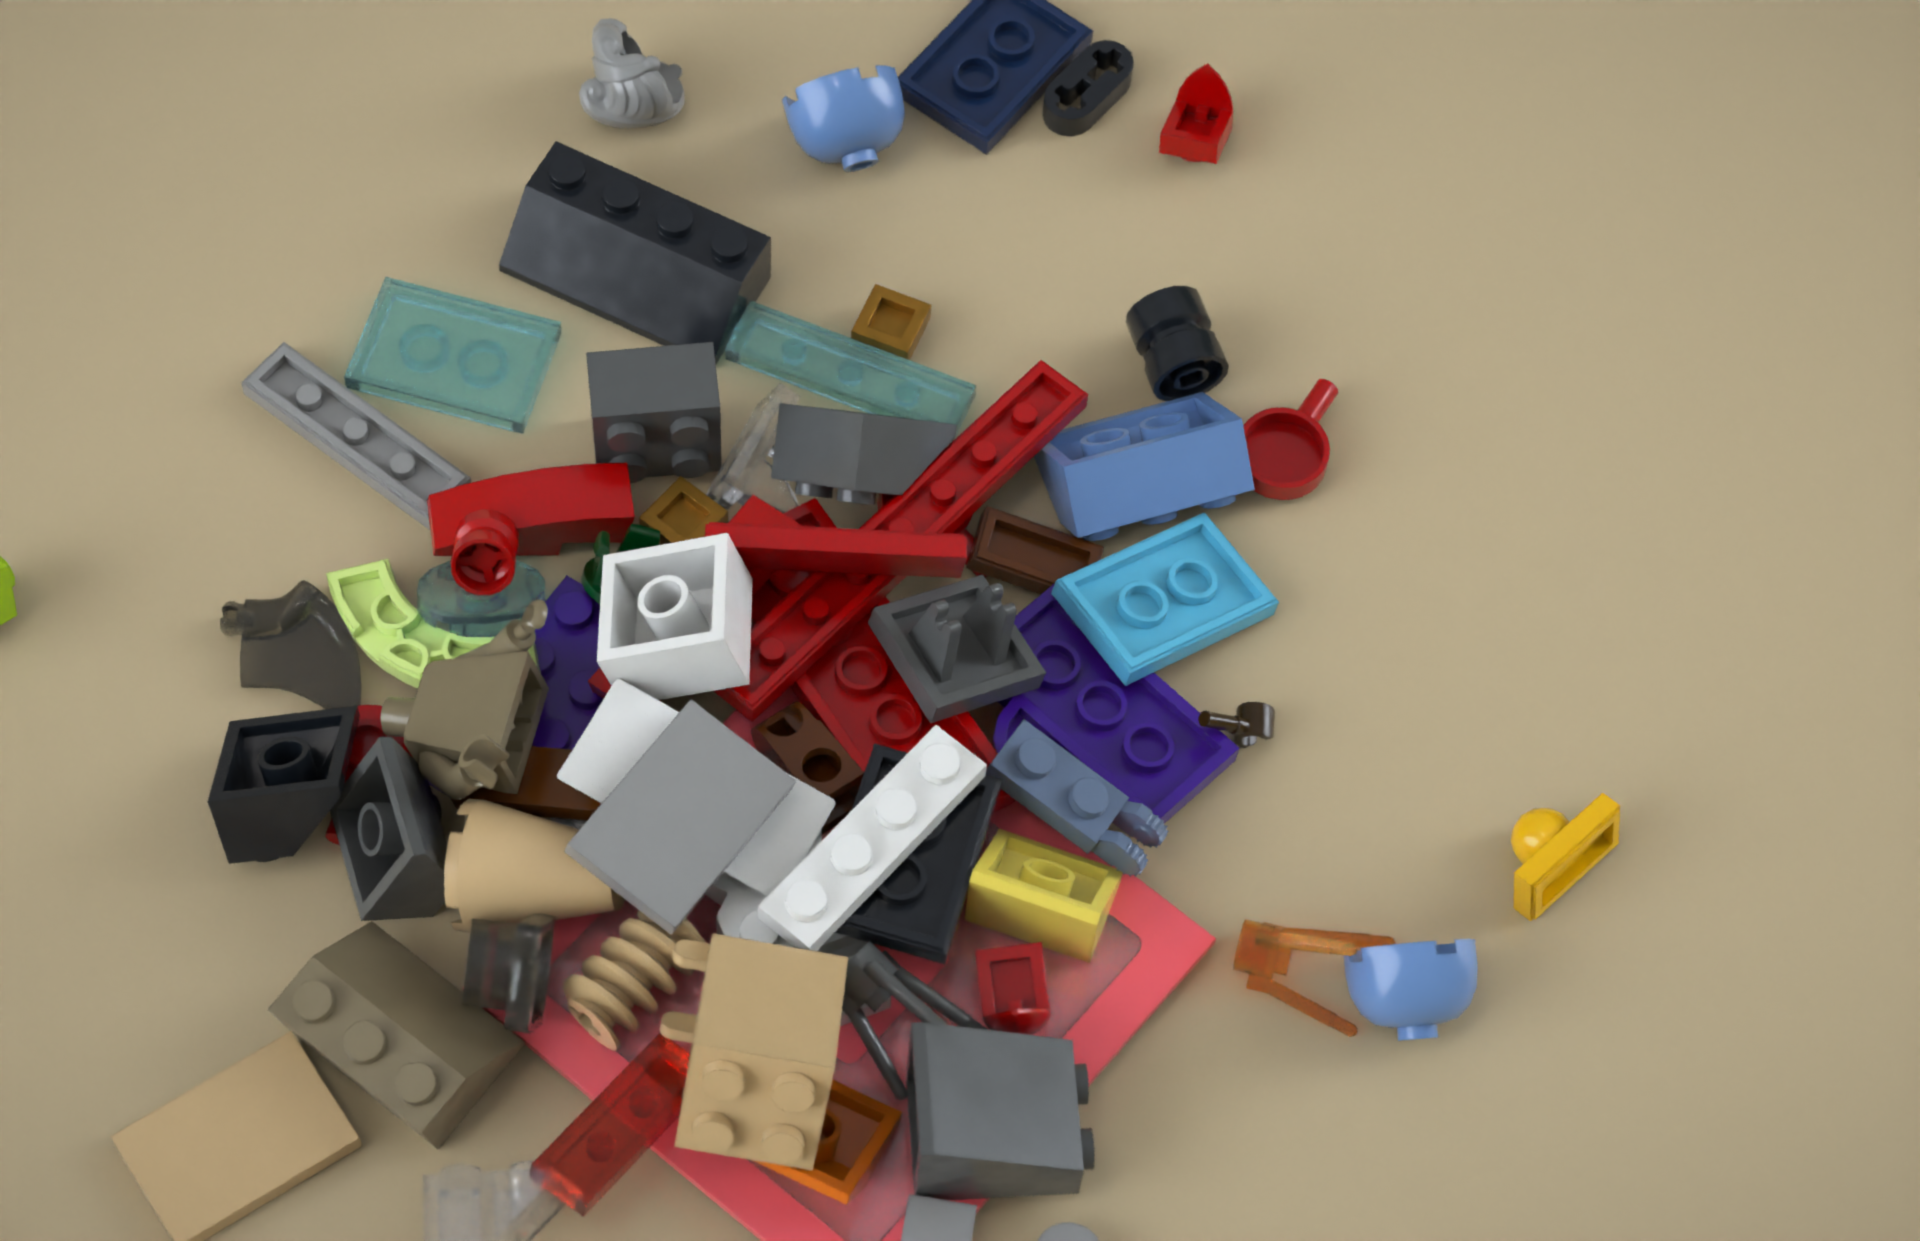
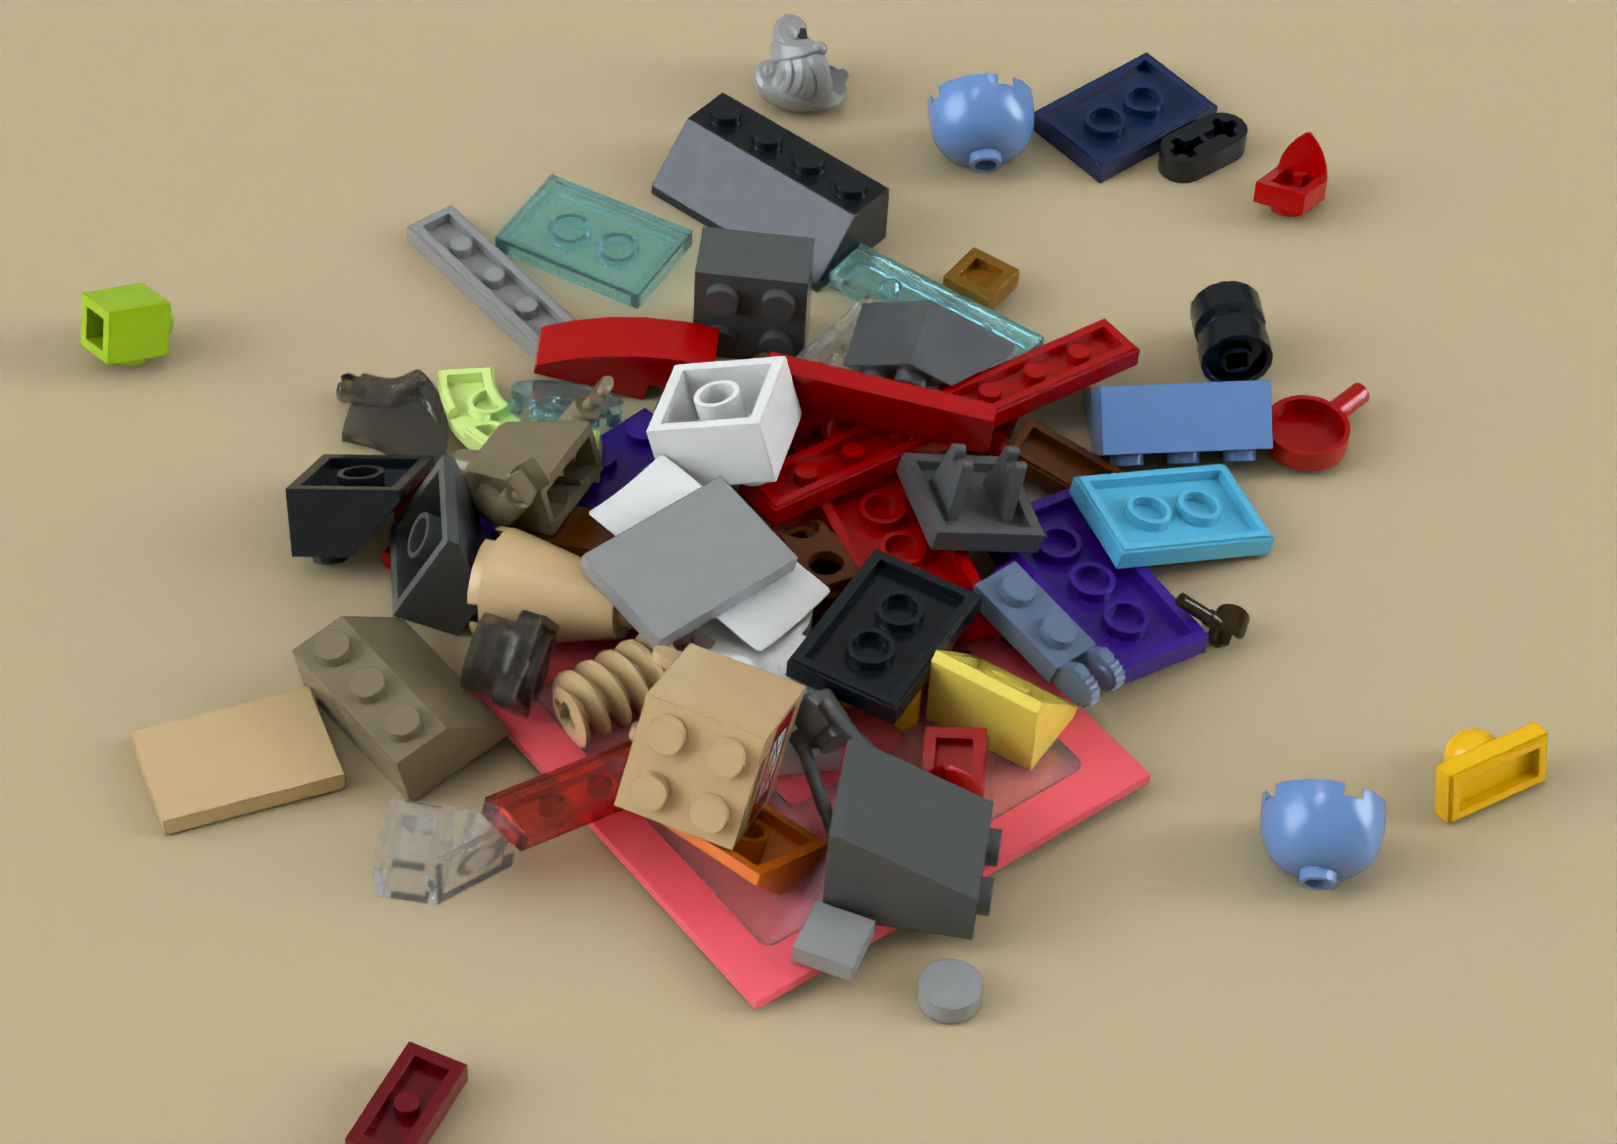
camera: 15 degrees right, 15 degrees down
(476, 564) = (569, 372): red wheel -> none
(872, 841) = (853, 610): white plate -> none
(1269, 950) = (1197, 791): clear orange plant -> none

